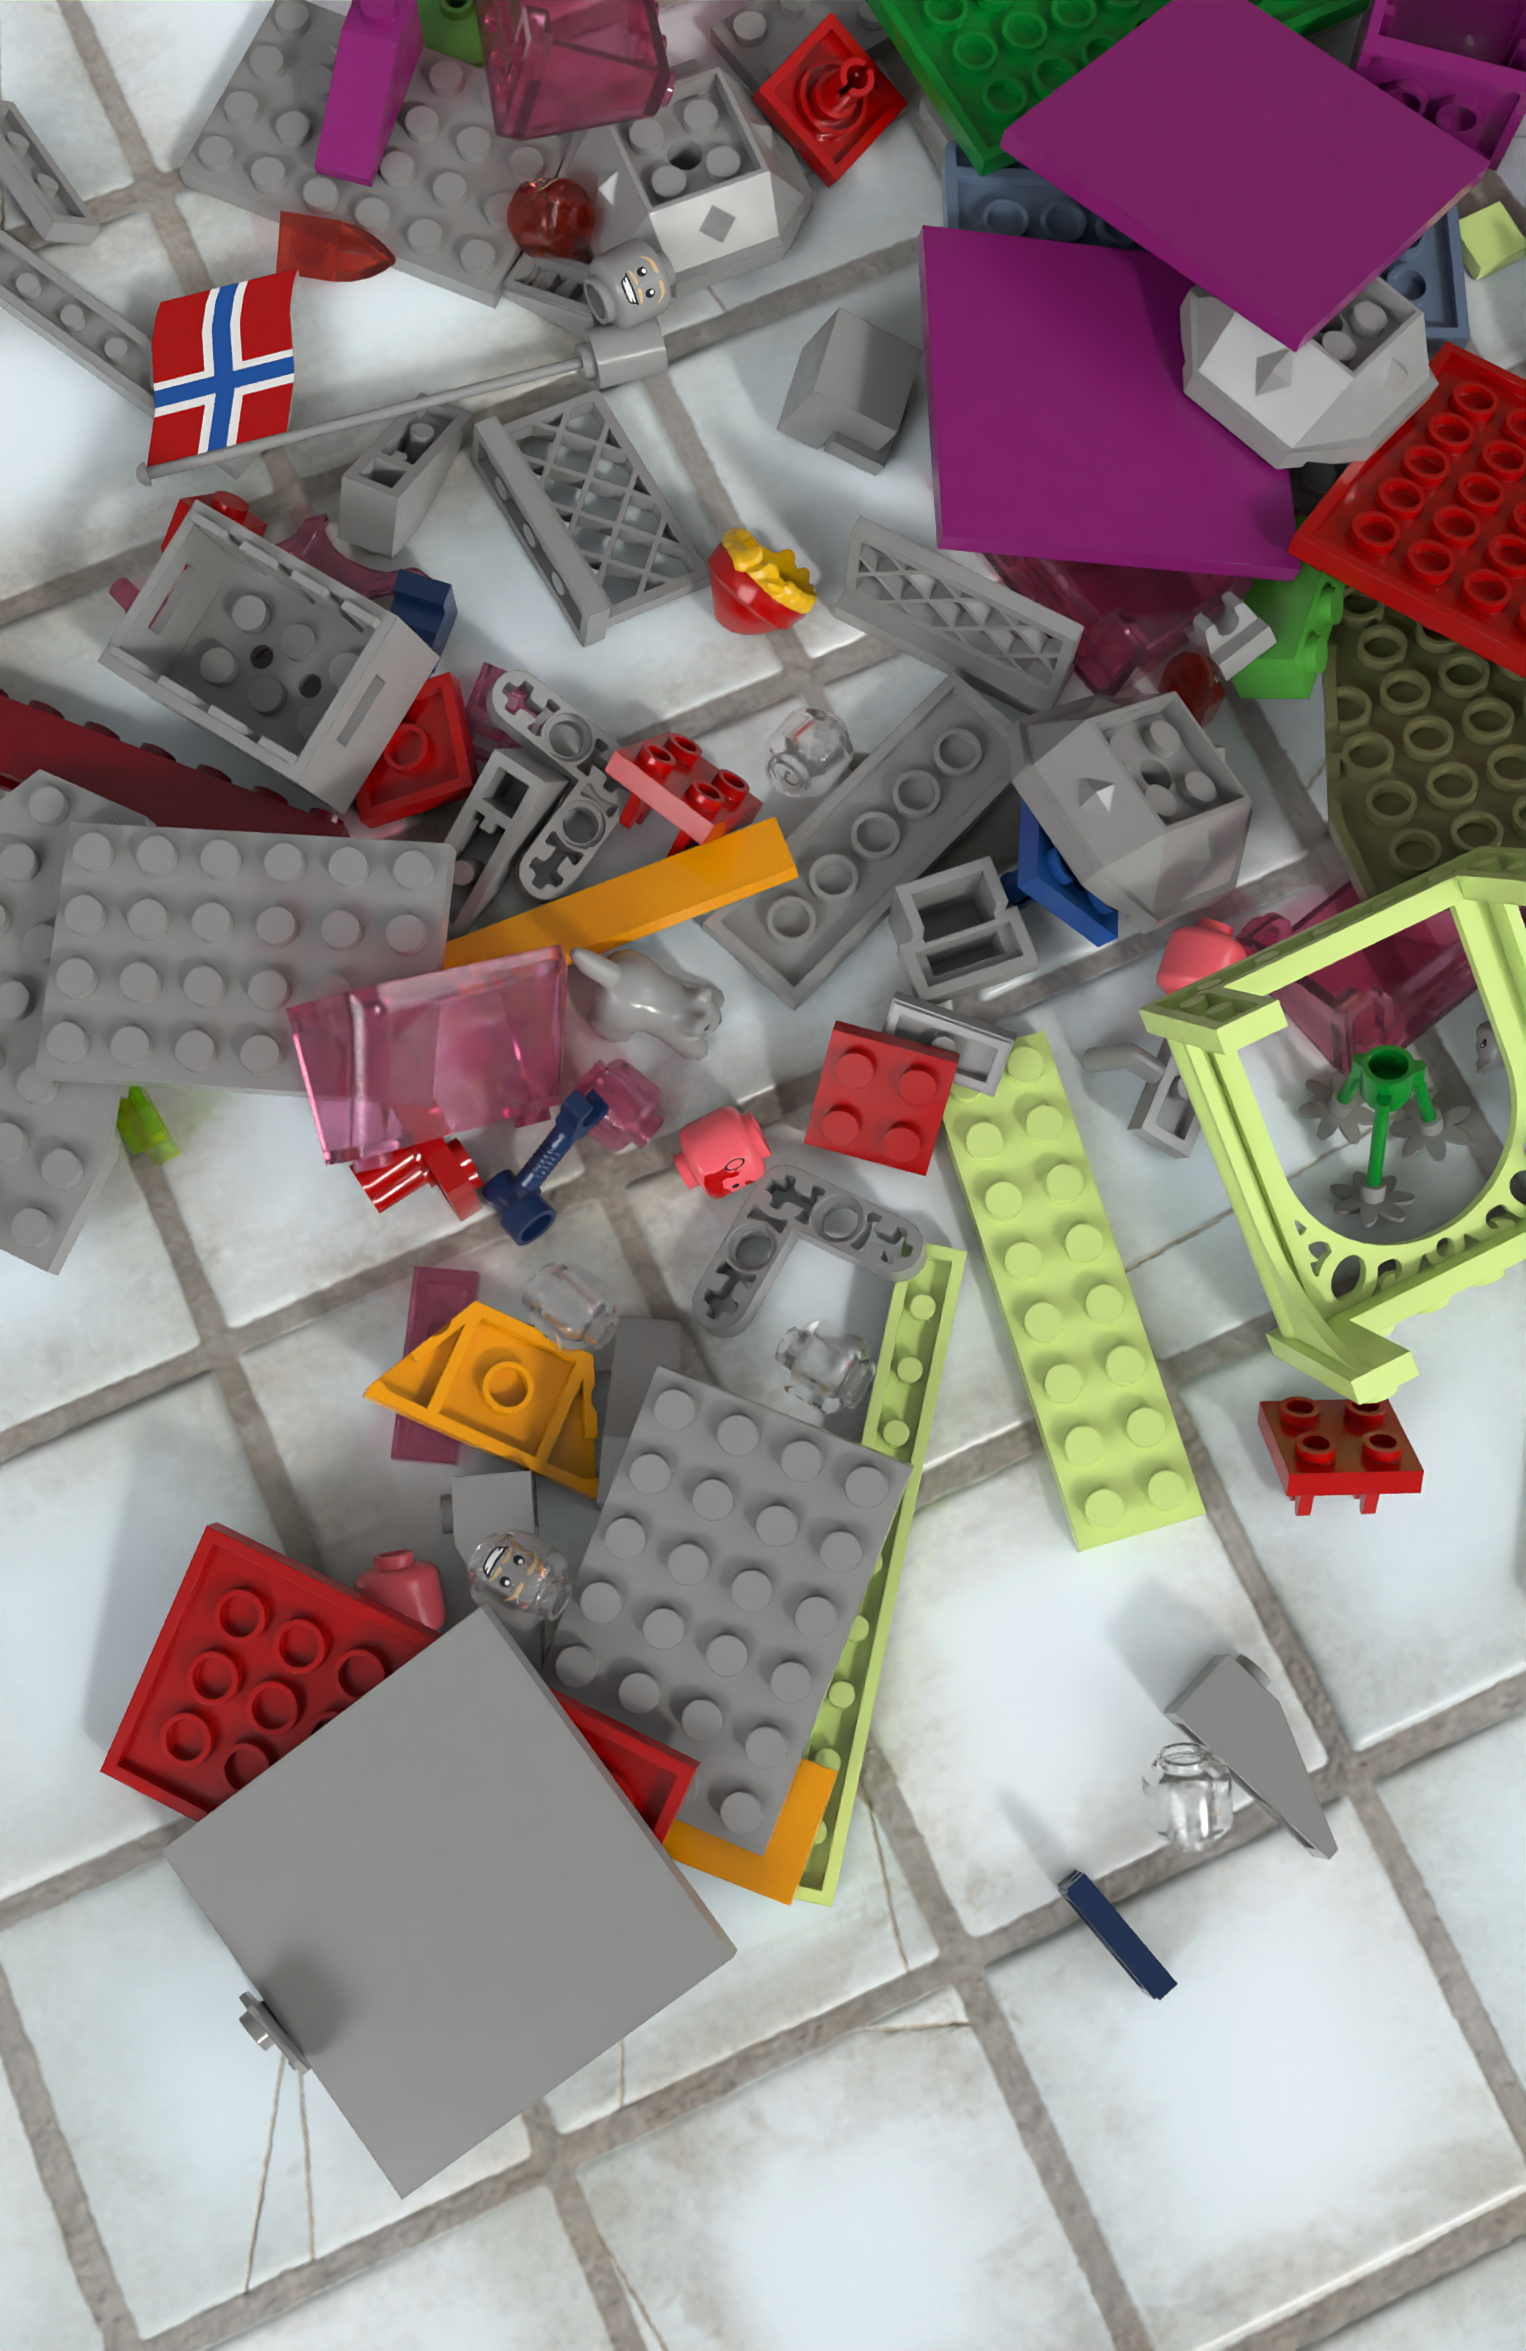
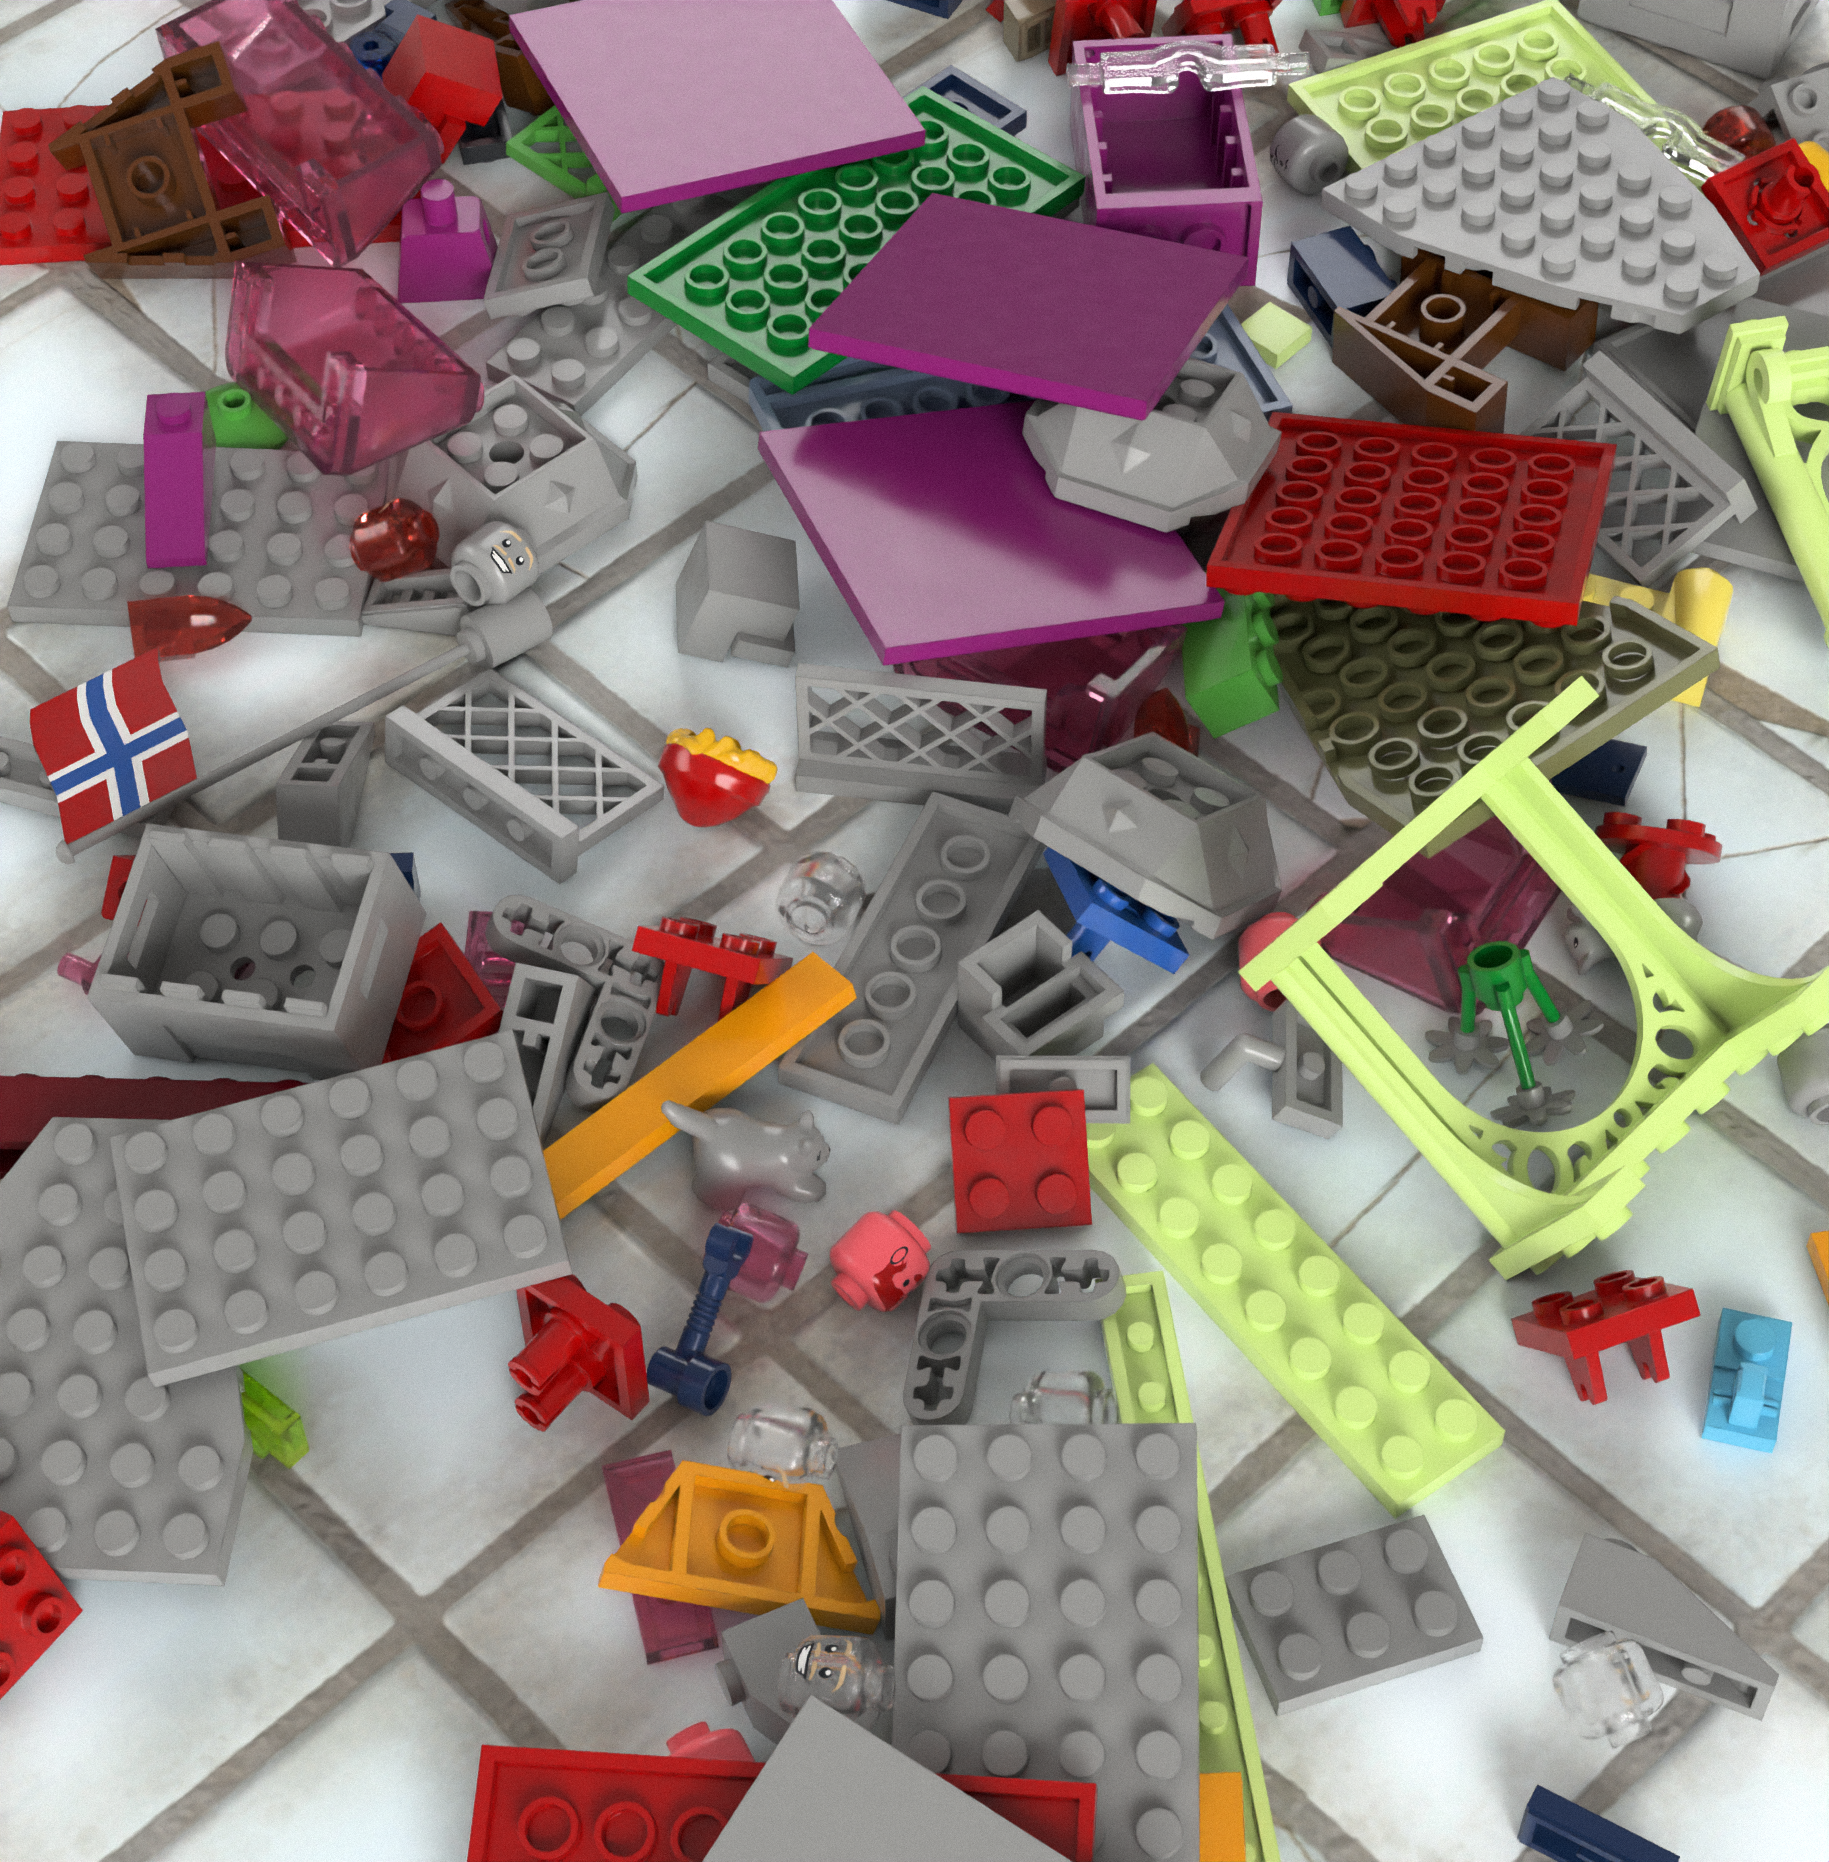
camera: 15 degrees left, 25 degrees down
(433, 1055) = (560, 1217): clear pink windscreen -> none
(829, 100) = (623, 383): red plate -> none
(1001, 1634) = (1351, 1614): none -> light grey plate
(1231, 636) = (1186, 670): light grey tile -> none
(1444, 1535) = (1747, 1380): none -> medium azure hinge

